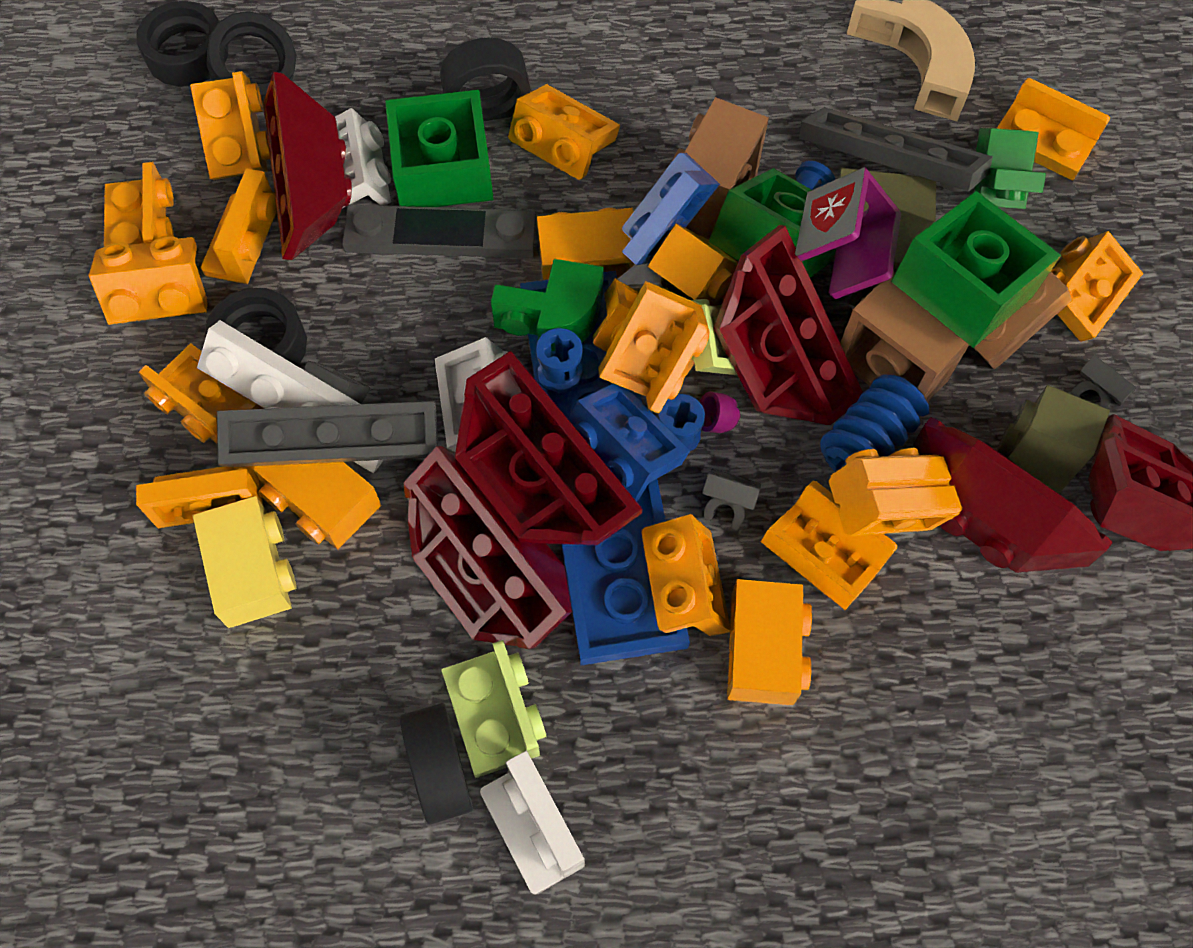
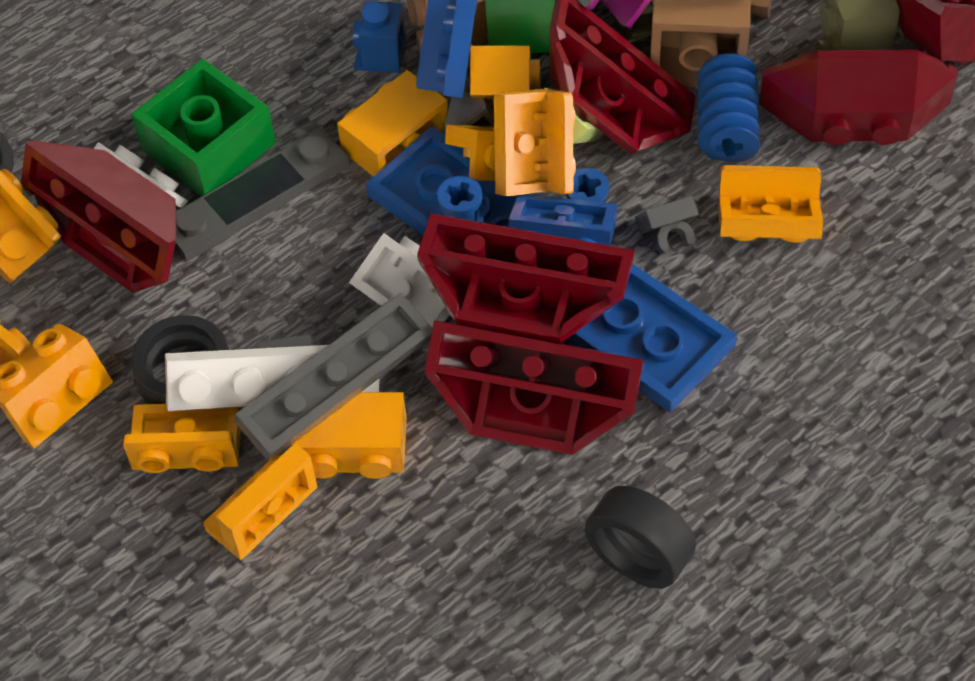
camera: 35 degrees left, 10 degrees down
(241, 230) = (86, 298): light orange bracket -> none
(243, 561) = (344, 524): light yellow brick -> none
(487, 57) = (181, 36): black tyre -> none
(492, 709) = (632, 461): yellowish green bracket -> none
(532, 825) = (747, 526): white bracket -> none
(560, 130) = (283, 58): light orange bracket -> none
(569, 302) = (422, 163): green brick -> none
(640, 157) = (380, 37): none -> blue brick
(685, 576) = (691, 293): light orange bracket -> none
(723, 408) = (608, 166): magenta hinge -> none
(767, 642) = (788, 297): light orange brick -> none
(893, 492) = (788, 131): light orange brick -> none

